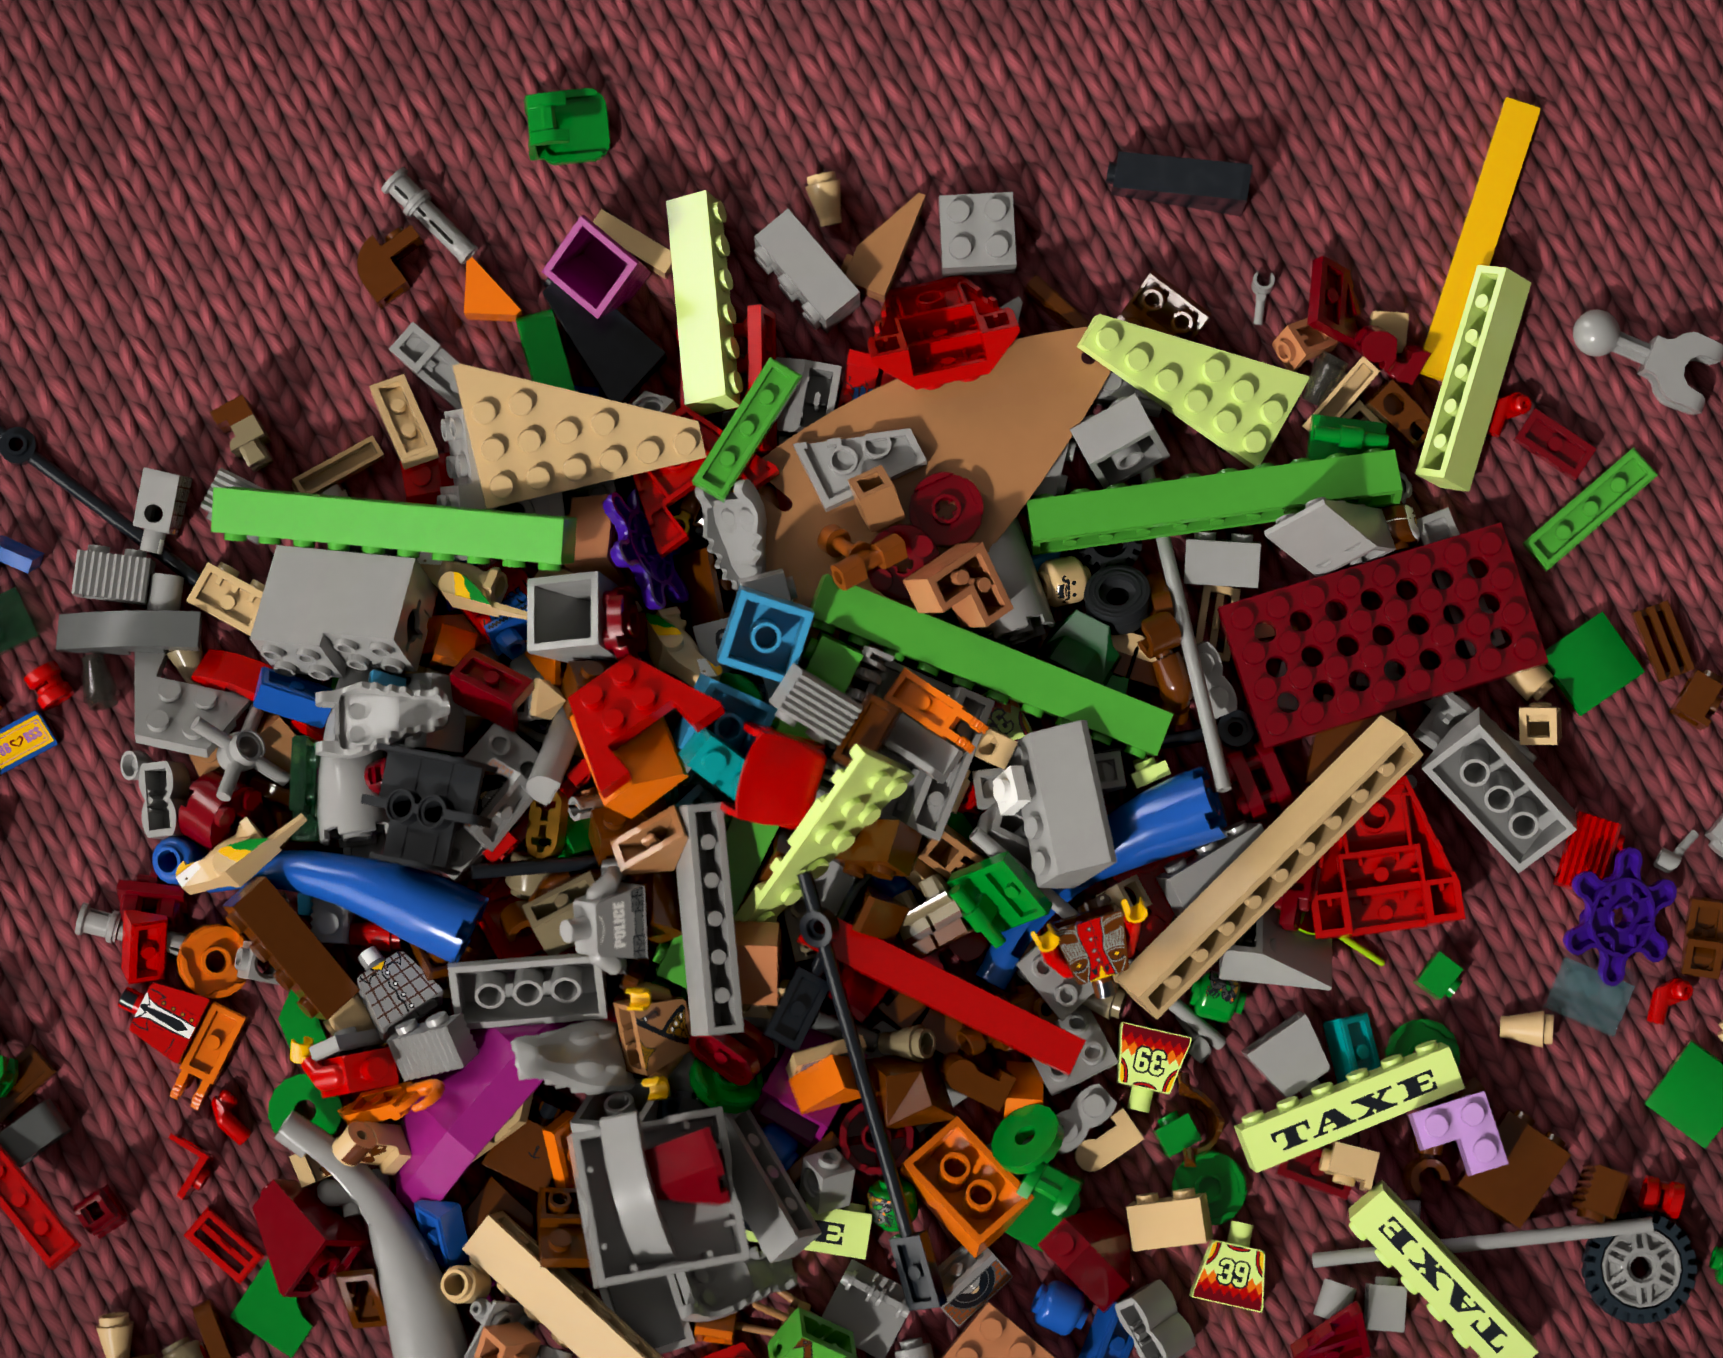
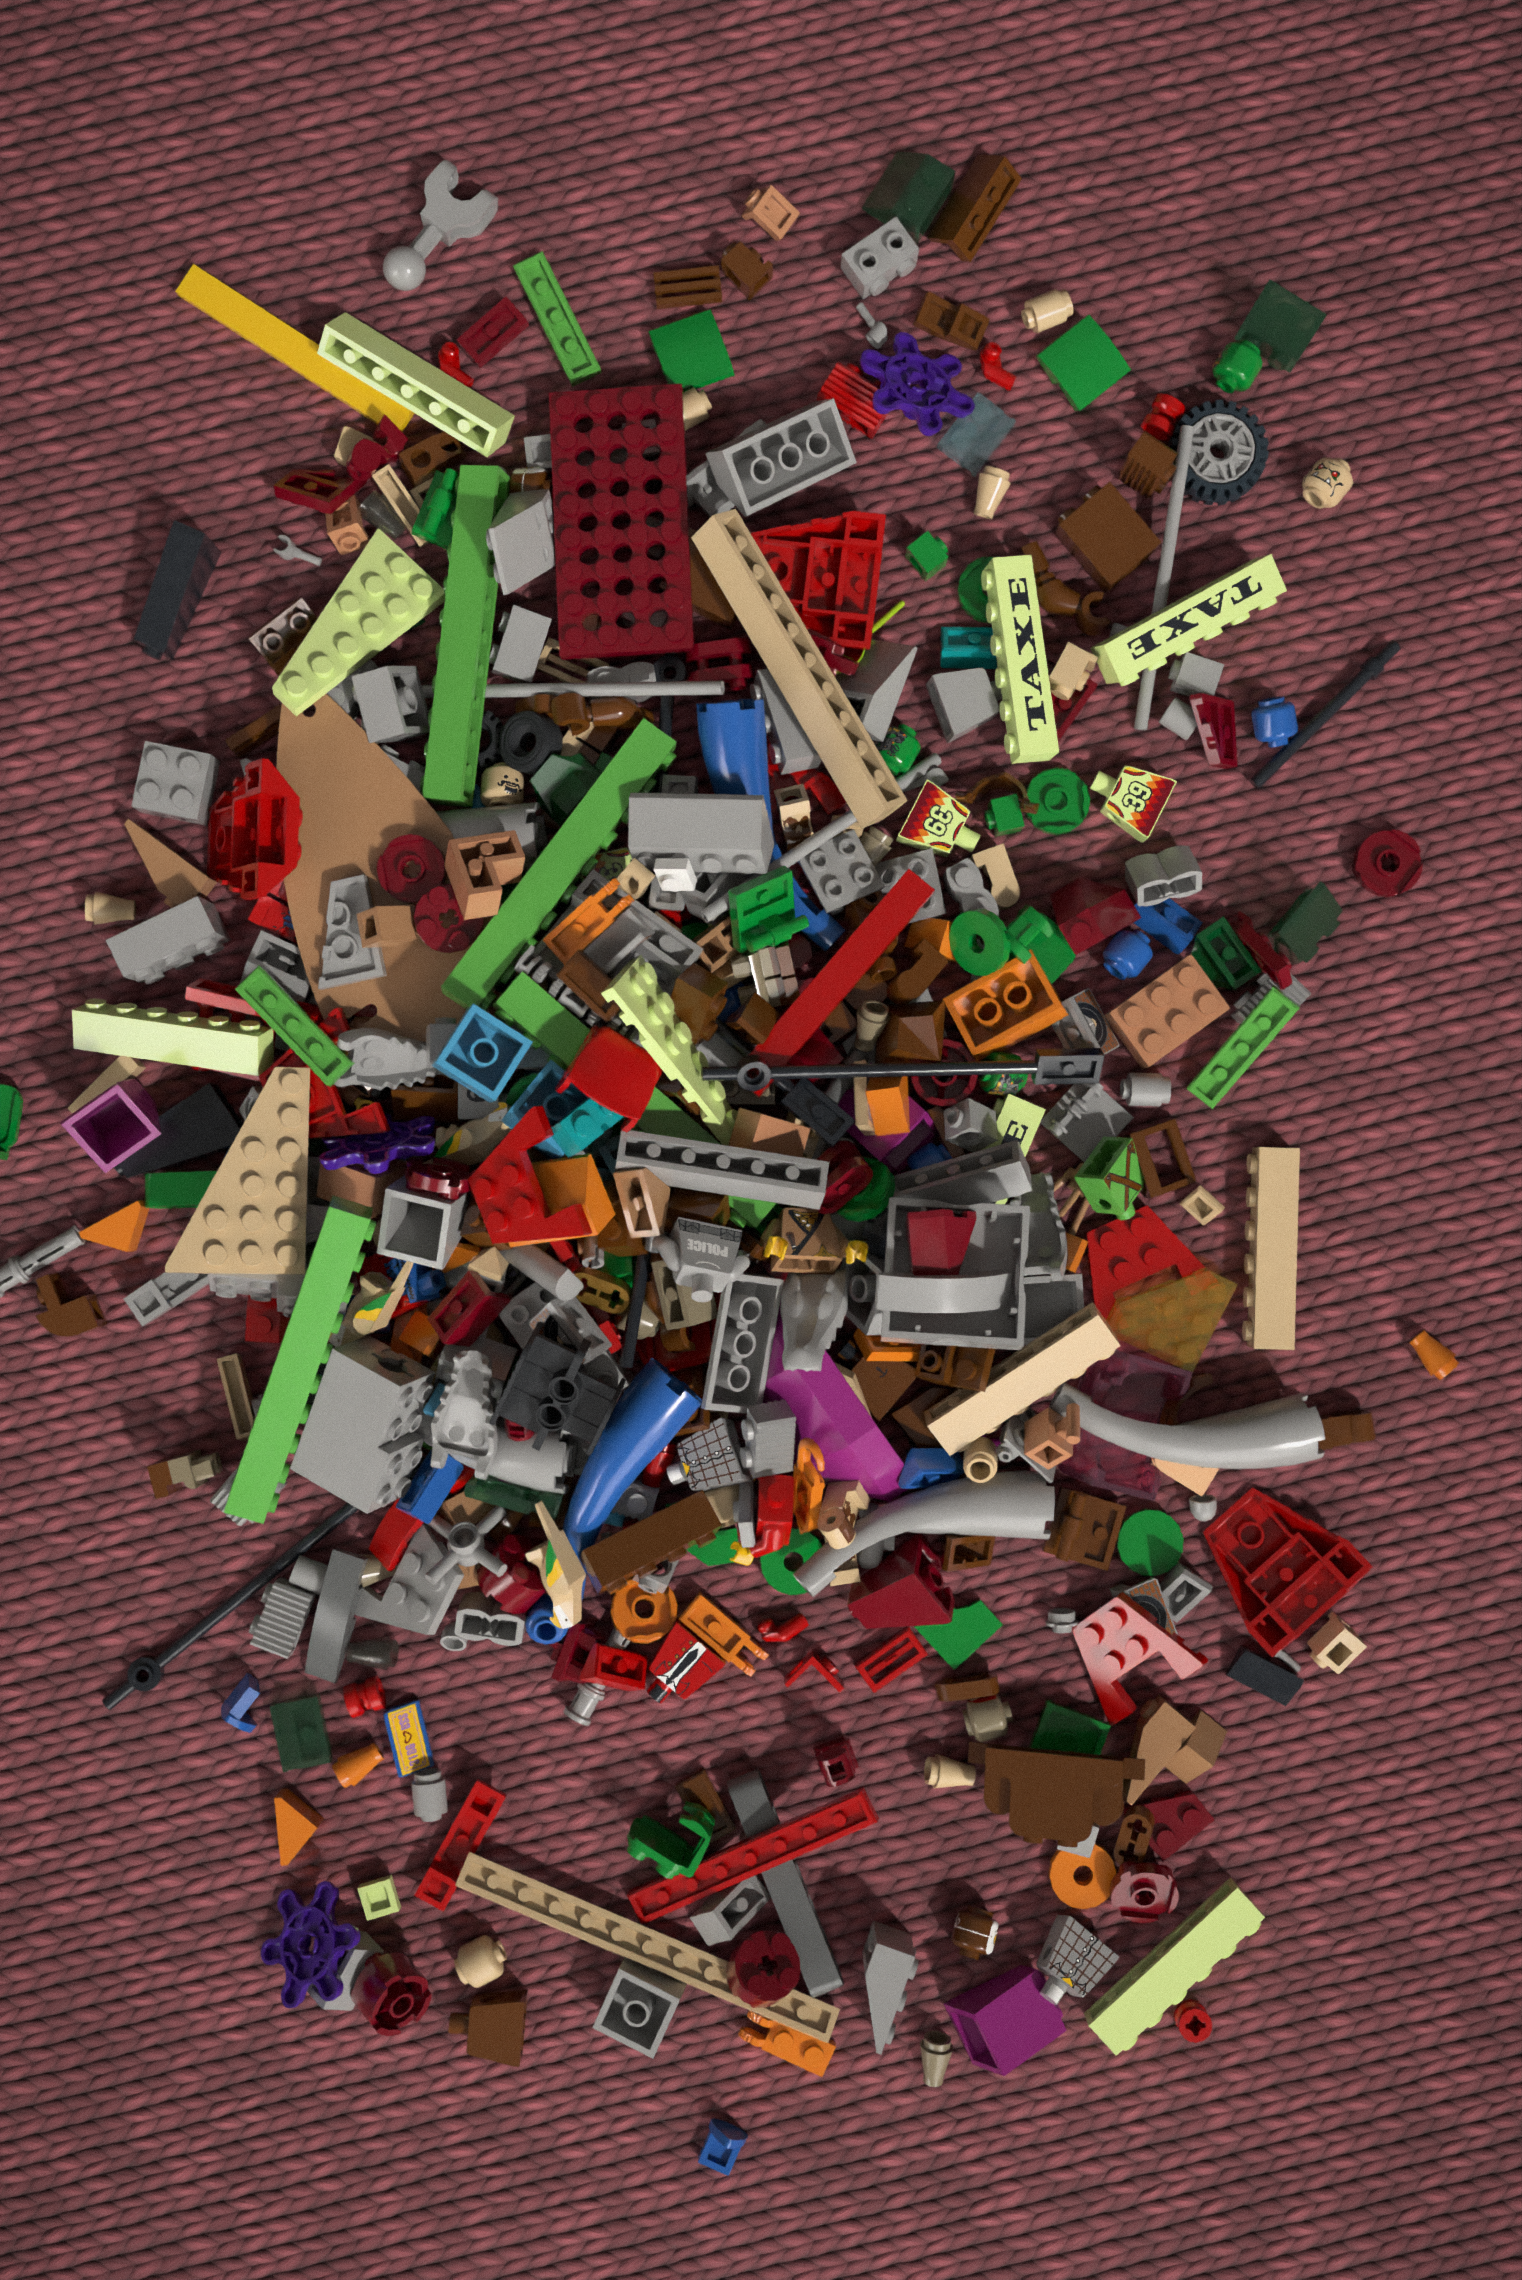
camera: 80 degrees left, 5 degrees up
(161, 491) = (217, 1559): light grey torso -> none
(227, 597) = (325, 1523): tan bracket -> none
(404, 421) = (211, 1328): tan plate -> none
(814, 704) = (556, 1023): light grey brick -> none
(859, 556) = (433, 953): dark orange bar -> none
(1093, 944) = (827, 838): torso -> none
(1148, 771) = (687, 756): yellowish green plate -> none
(1169, 1220) = (1077, 840): tan brick -> none
(1467, 1122) = (1063, 559): lavender brick -> none
(1540, 724) = (733, 408): tan brick -> none

